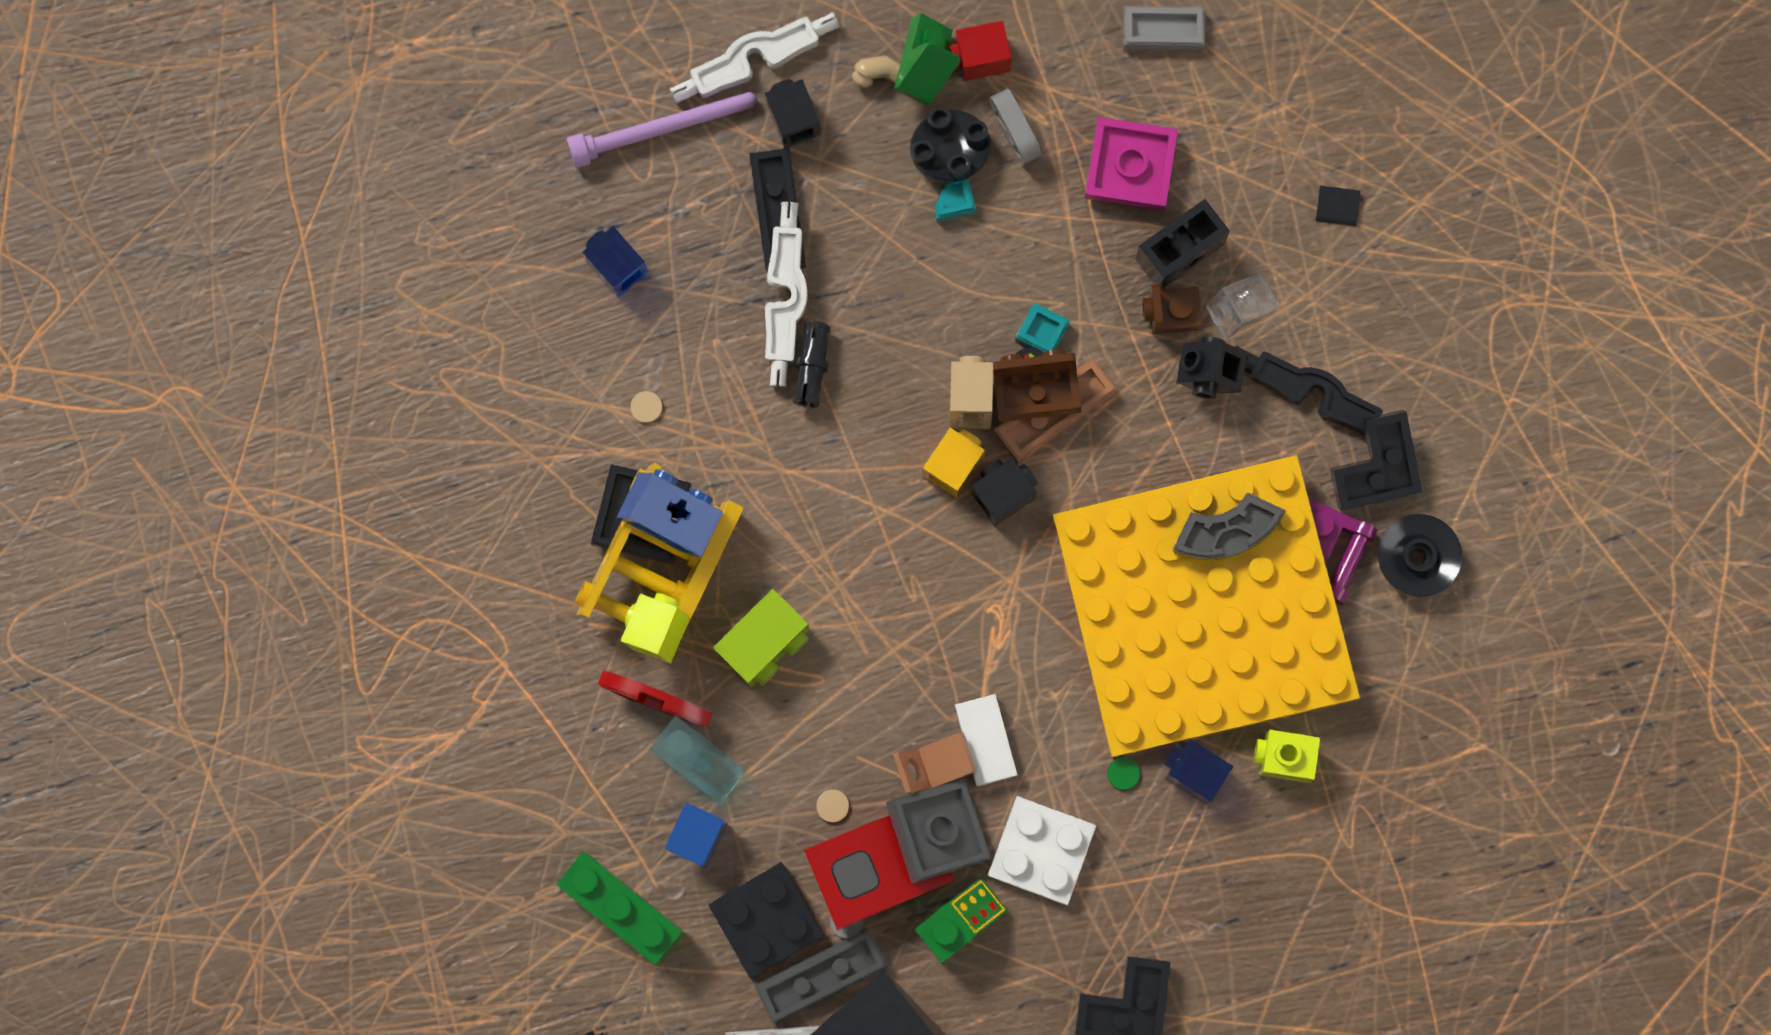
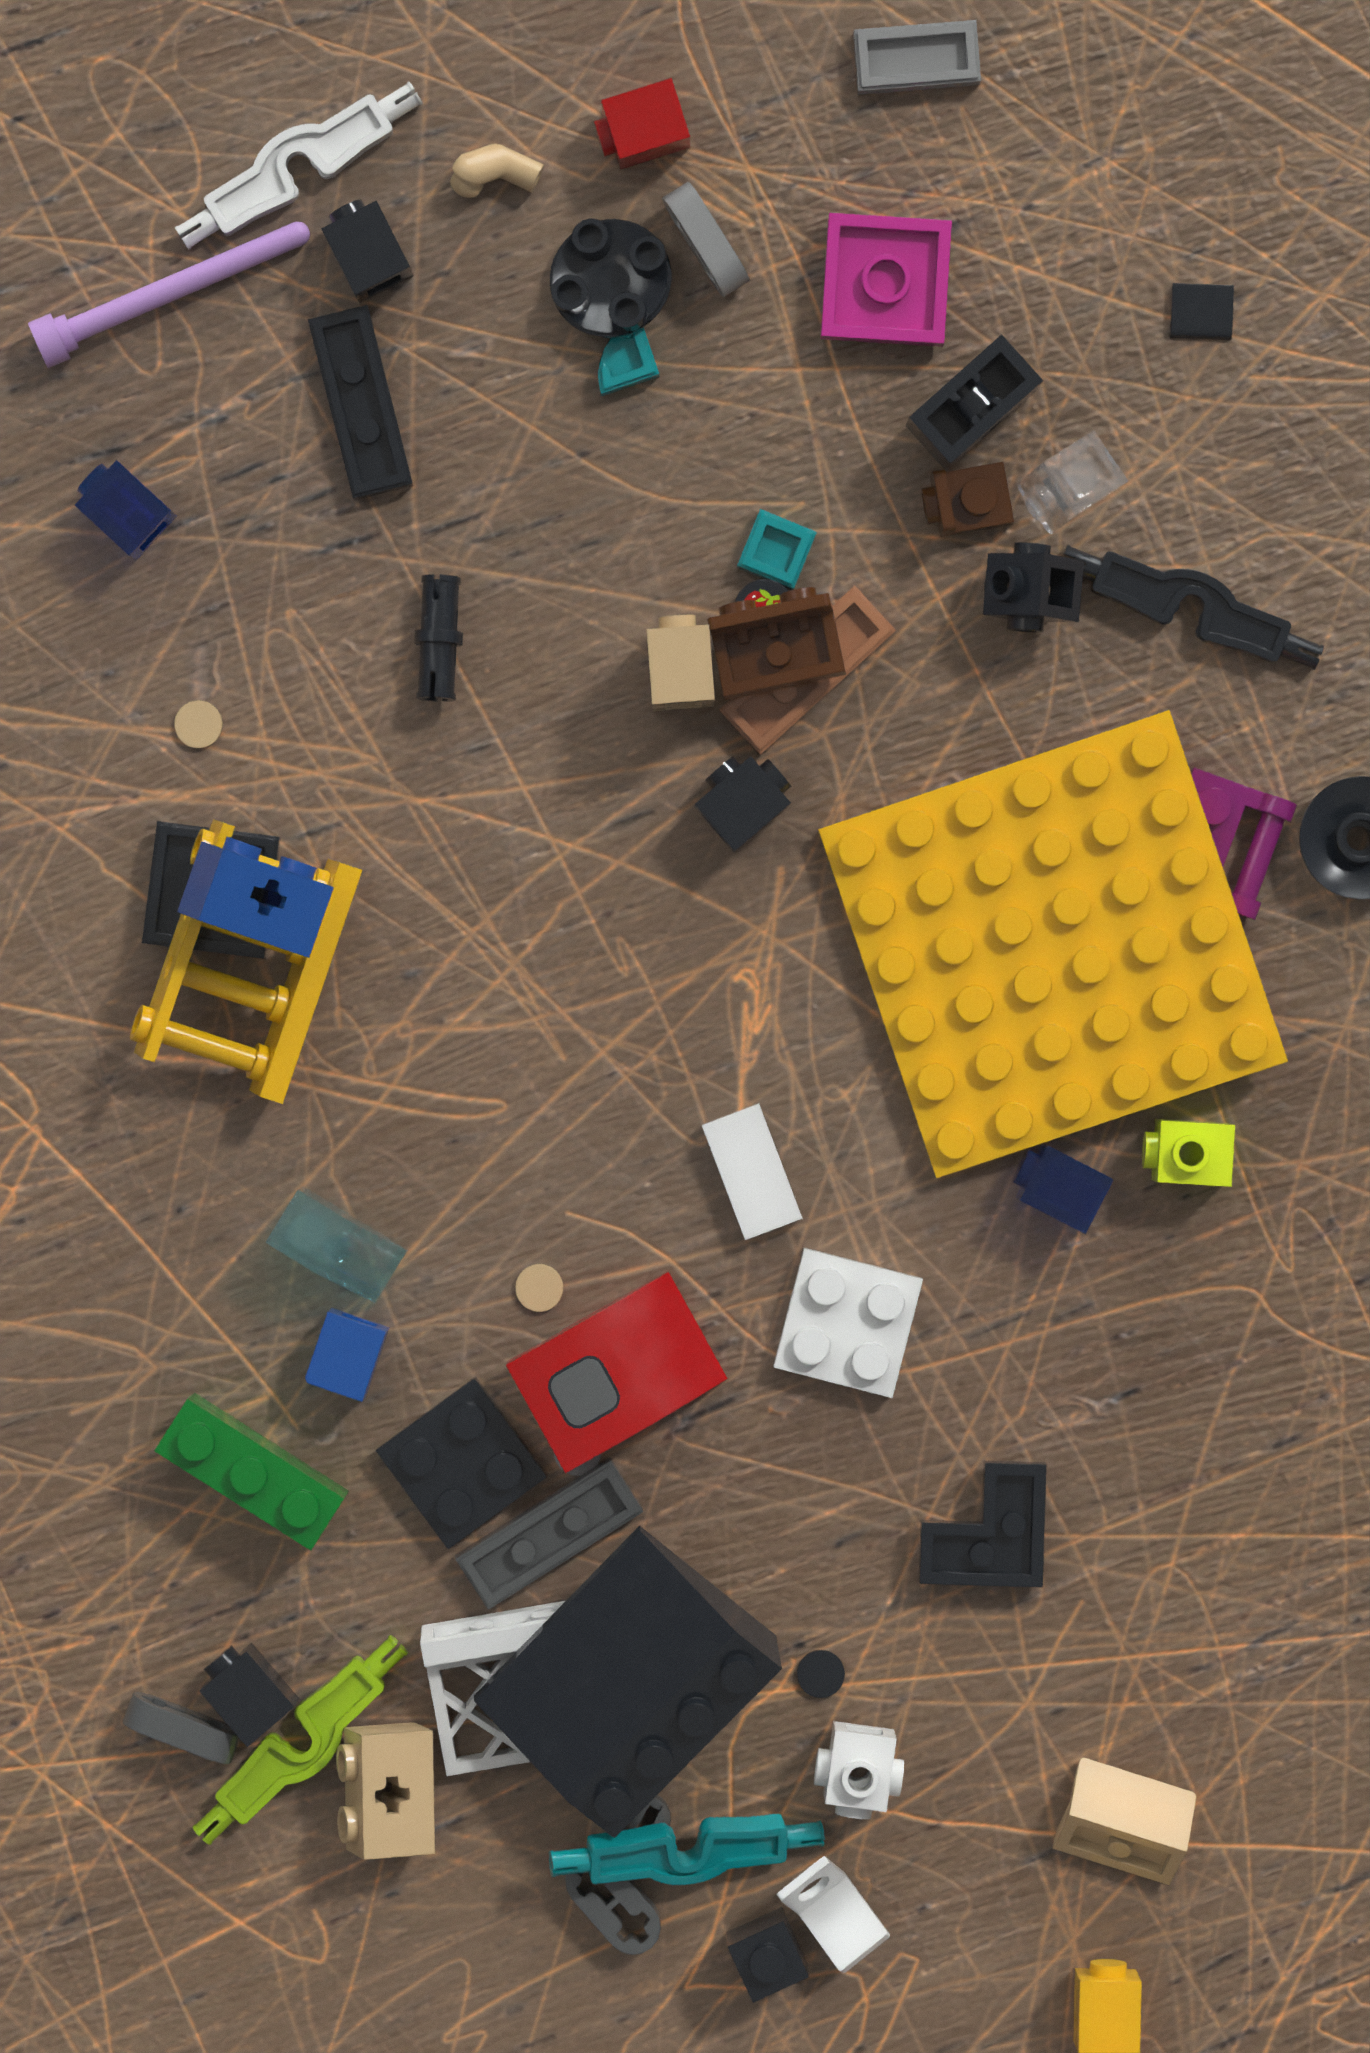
camera: 10 degrees left, 10 degrees up
(654, 699) = (265, 1164): red tile -> none
(655, 626) = (253, 1065): neon yellow brick -> none
(763, 639) = (411, 1059): lime brick -> none
(783, 316) = (384, 502): white piece -> none
(925, 60) = (558, 147): green slope -> none
(936, 763) = (682, 1215): nougat bracket -> none
(938, 831) = (696, 1312): dark grey tile -> none
(954, 461) = (665, 764): yellow brick -> none
(960, 920) = (741, 1437): green slope -> none
(1123, 773) = (955, 1197): green piece -> none
(1230, 532) = (1078, 839): dark grey tile -> none
(1388, 472) = (1304, 720): black plate -> none

